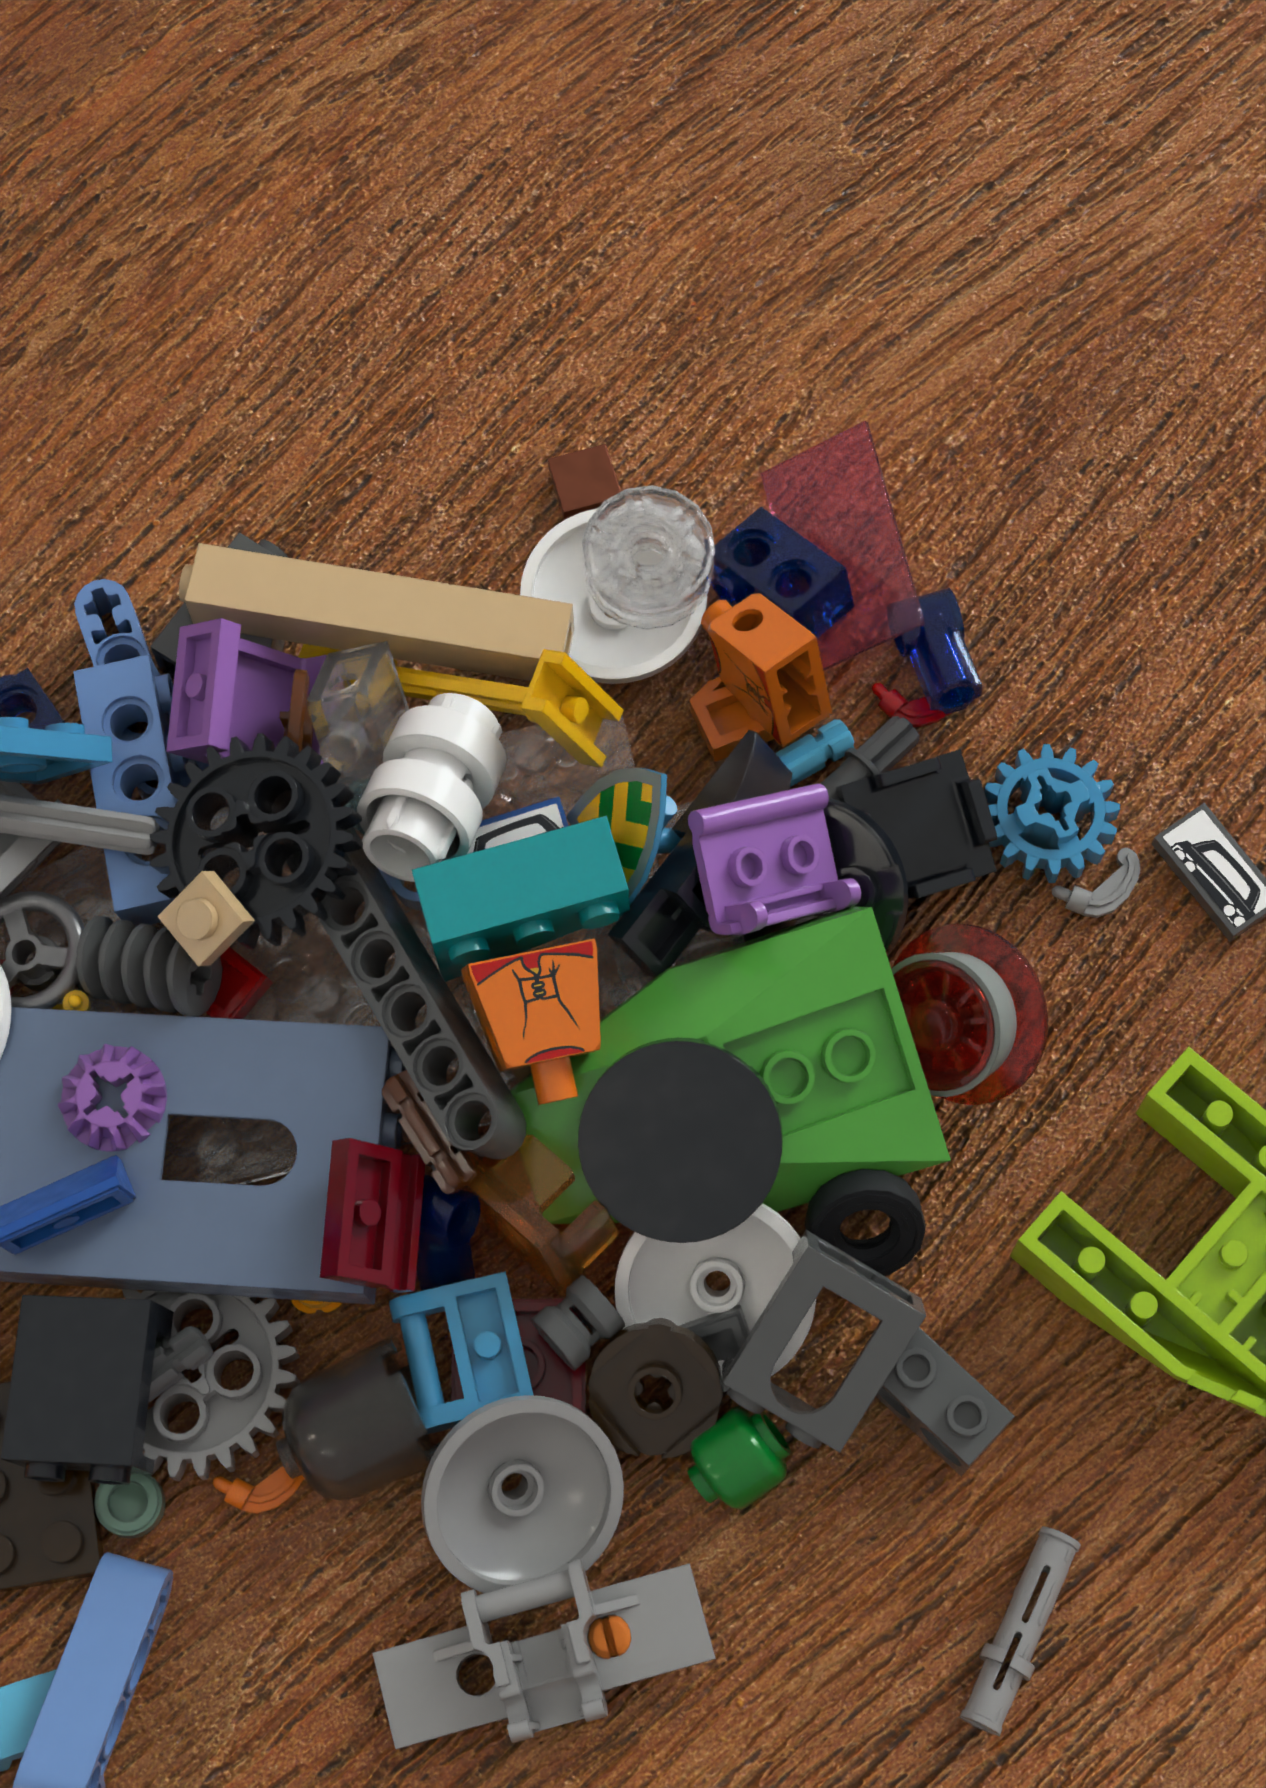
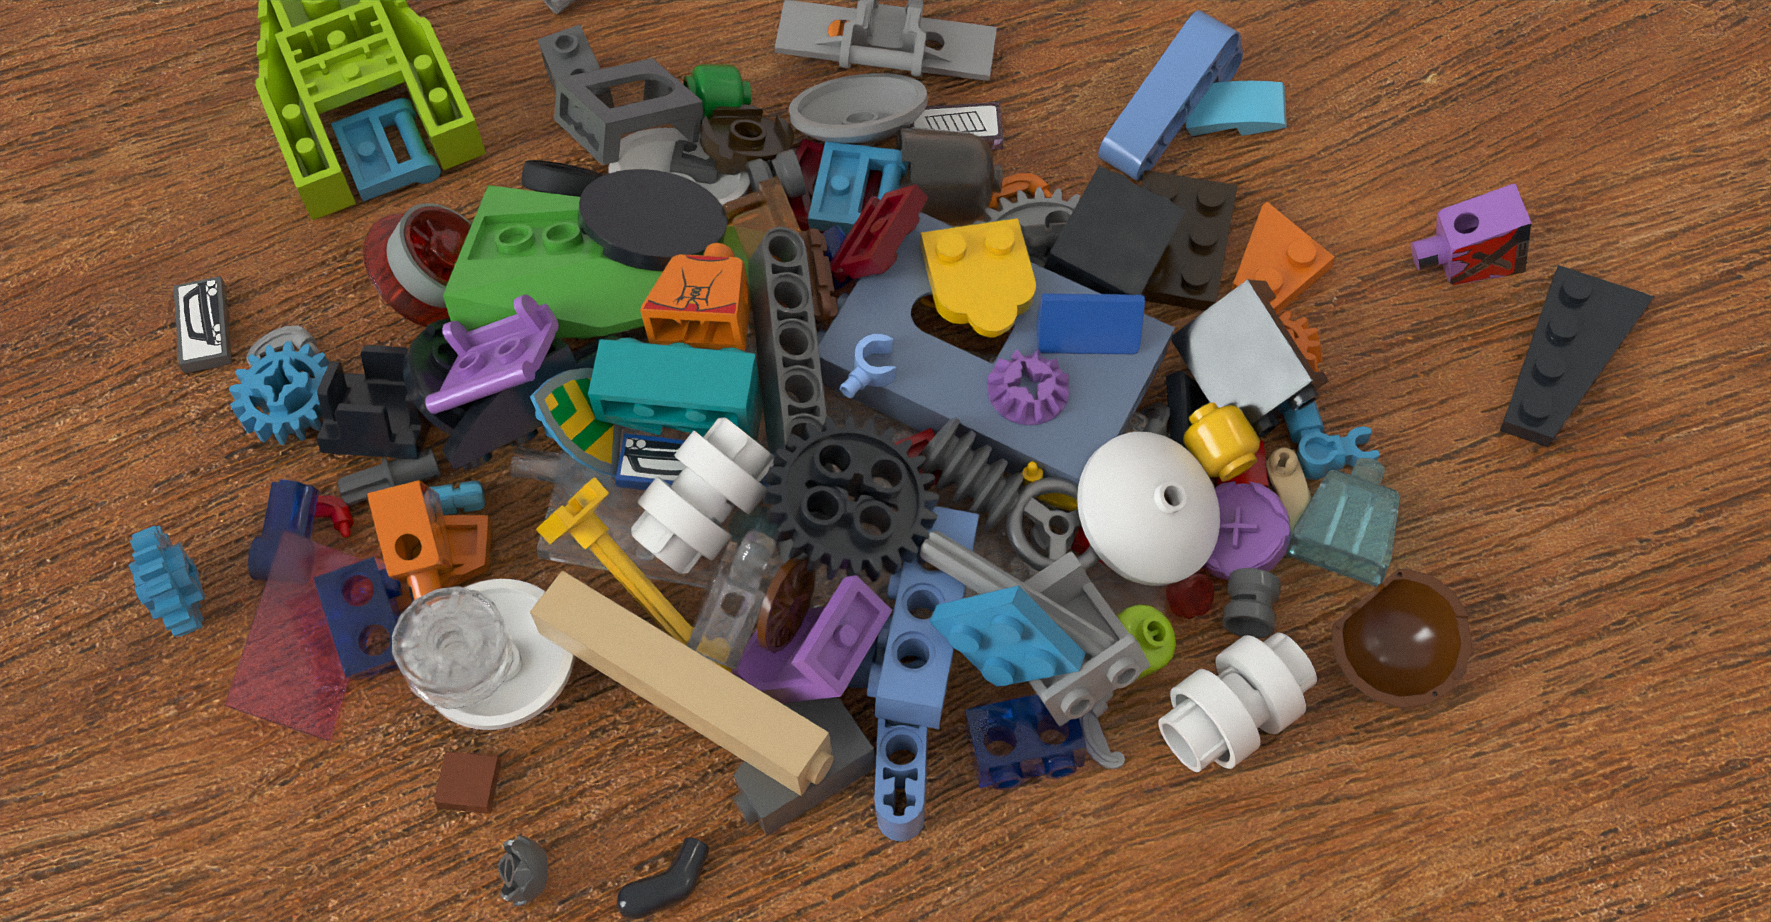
camera: 155 degrees left, 10 degrees down
(206, 918) = (910, 445): tan plate -> none
(223, 1221) = (980, 274): none -> yellow plate
(311, 1013) = (863, 372): none -> light blue piece
(321, 455) = (668, 888): none -> black arm
(377, 1555) = (975, 118): none -> white tile
(473, 411) = (523, 870): none -> dark grey plate
(1020, 524) = (166, 581): none -> dark azure gear
(1155, 1184) = (371, 155): none -> dark azure plate

